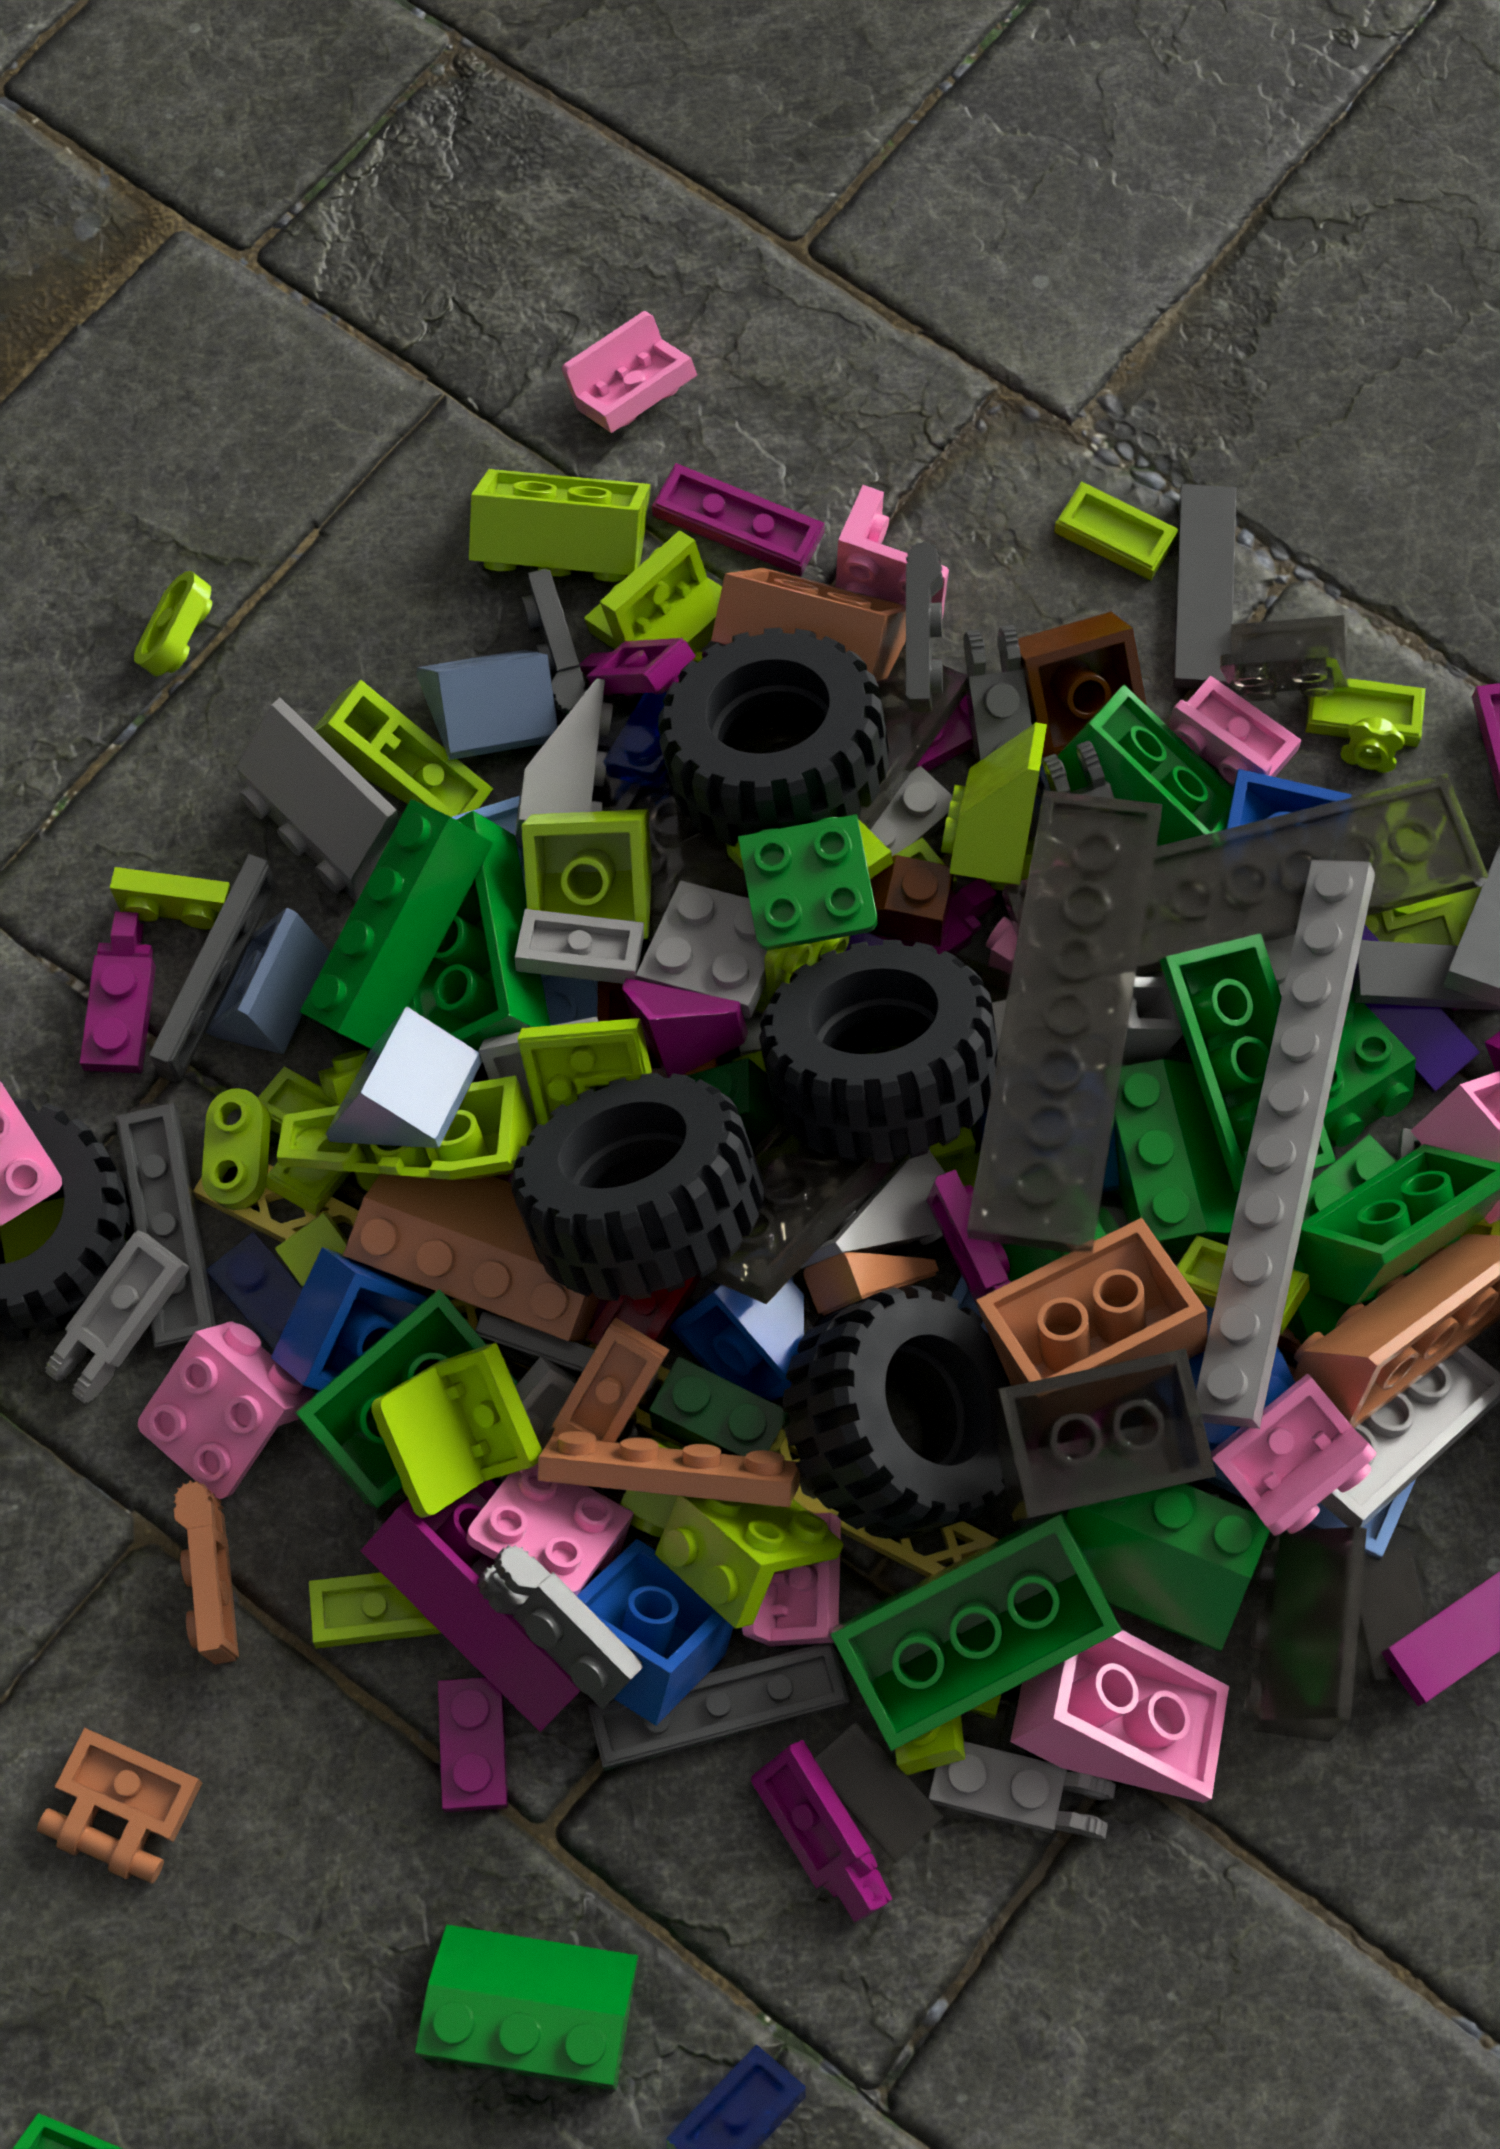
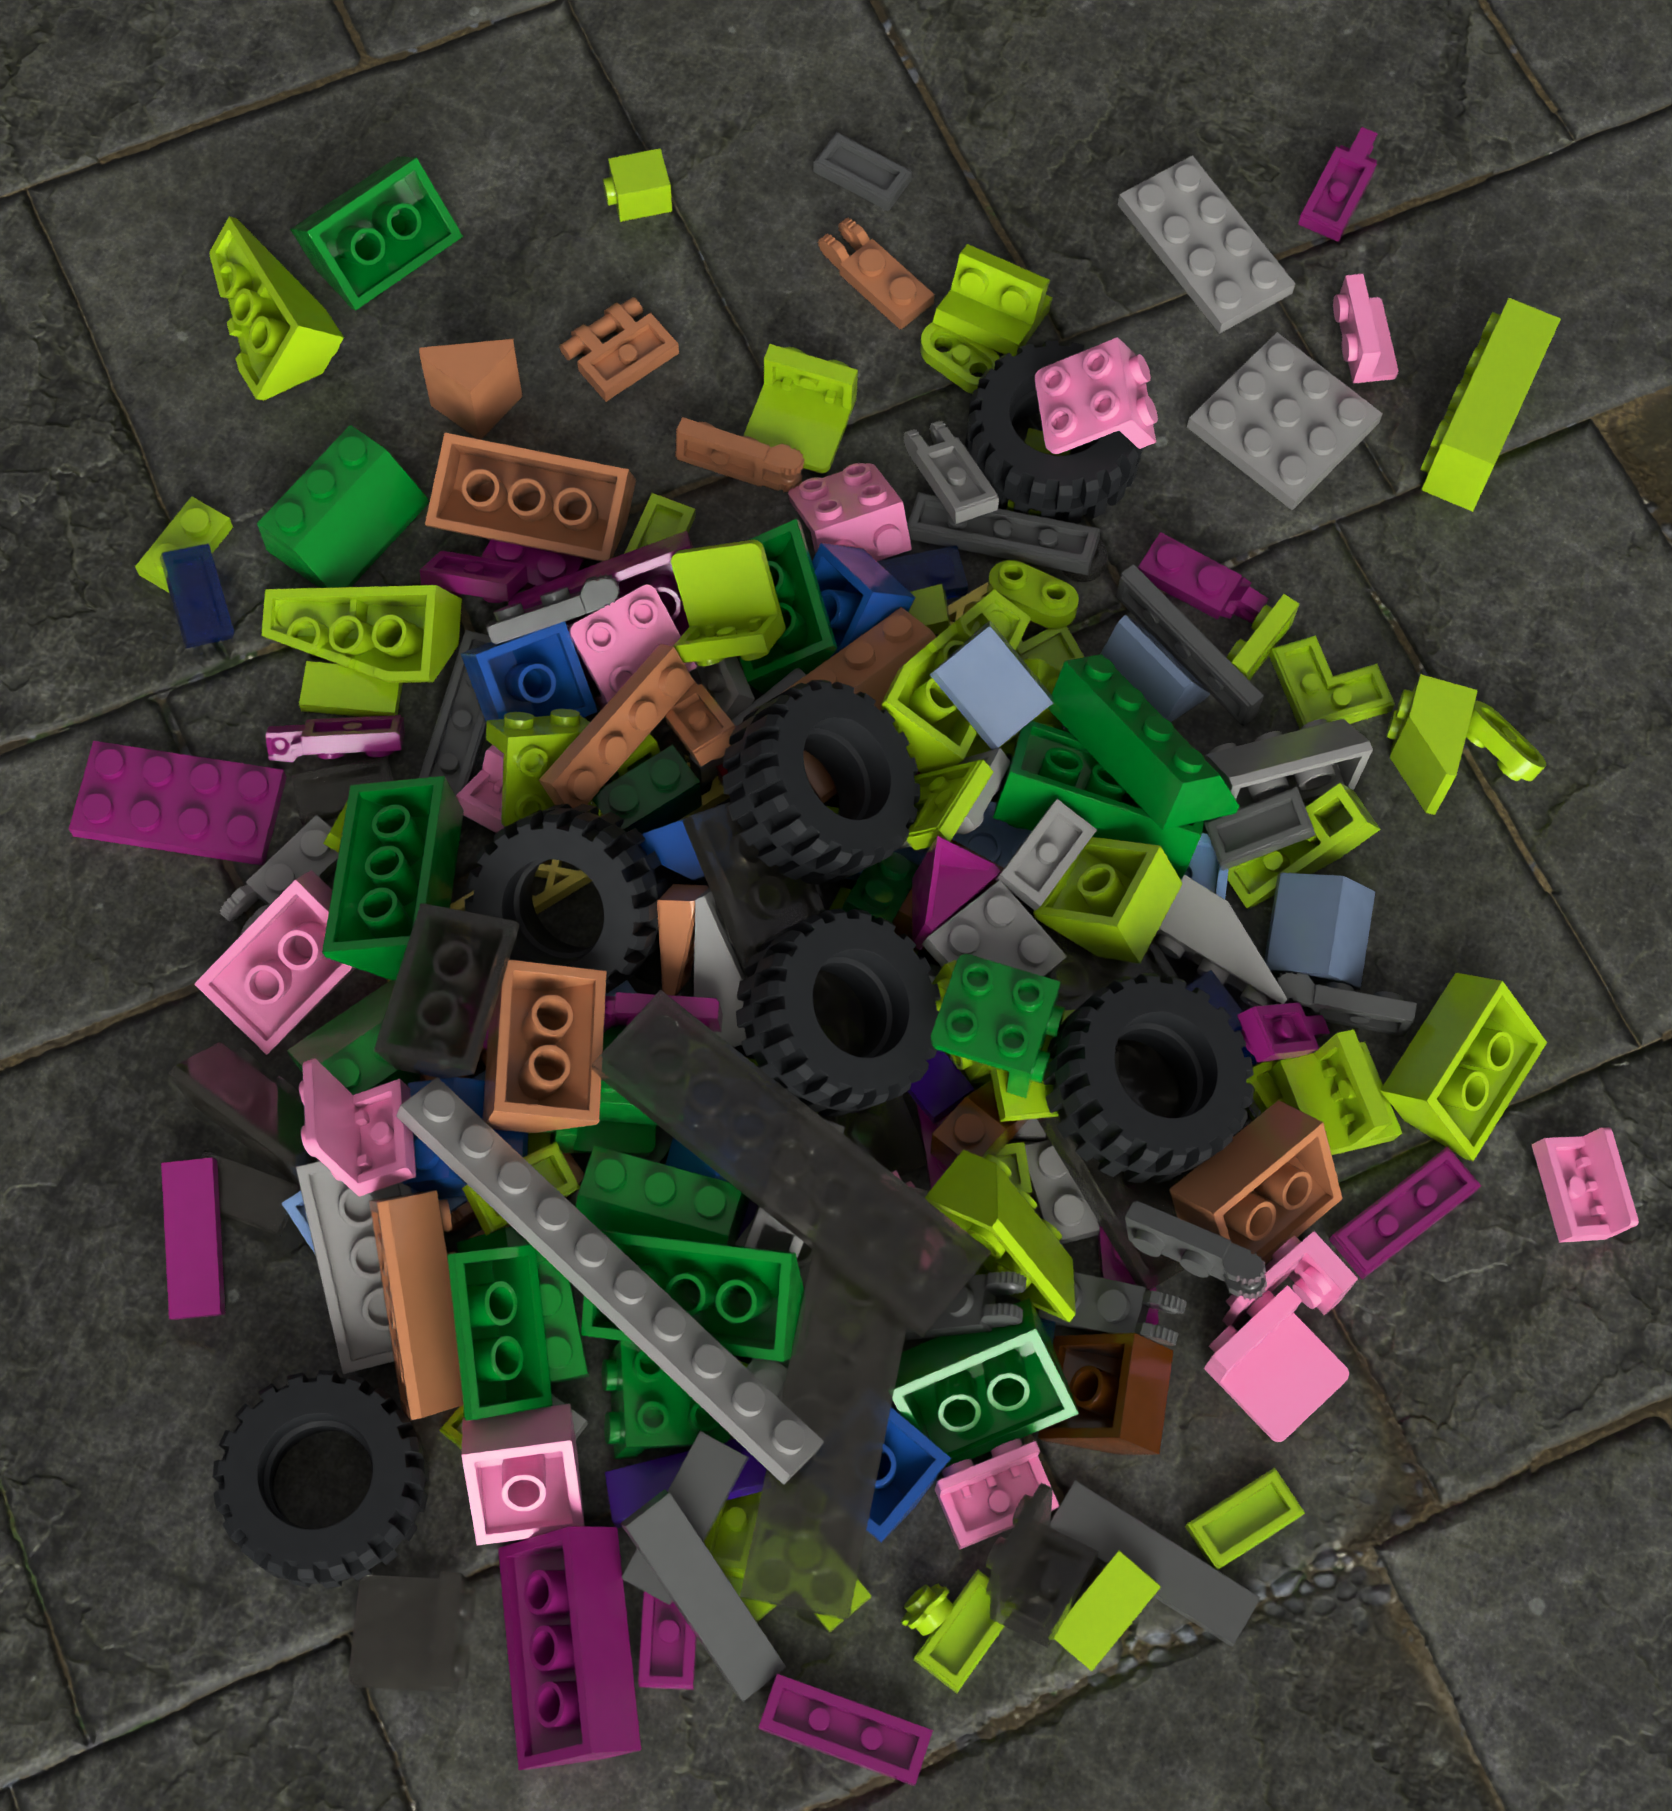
camera: 115 degrees right, 0 degrees up
(109, 1533) = (804, 405): none -> lime bracket
(203, 814) = (1320, 695): none -> lime tile
(219, 672) = (1430, 737): none -> lime slope
(281, 1936) = (472, 382): none -> nougat slope
(399, 1778) = (530, 498): none -> nougat slope
(404, 774) = (1260, 828): none -> dark grey tile
(533, 1790) = (475, 576): none -> magenta plate
(665, 1863) = (376, 630): none -> lime wedge
(749, 1860) = (344, 691): none -> lime tile
(976, 549) = (1275, 1365): none -> bright pink bracket
(1001, 1980) = (178, 803): none -> magenta plate
(1268, 594) = (1106, 1610): none -> lime tile

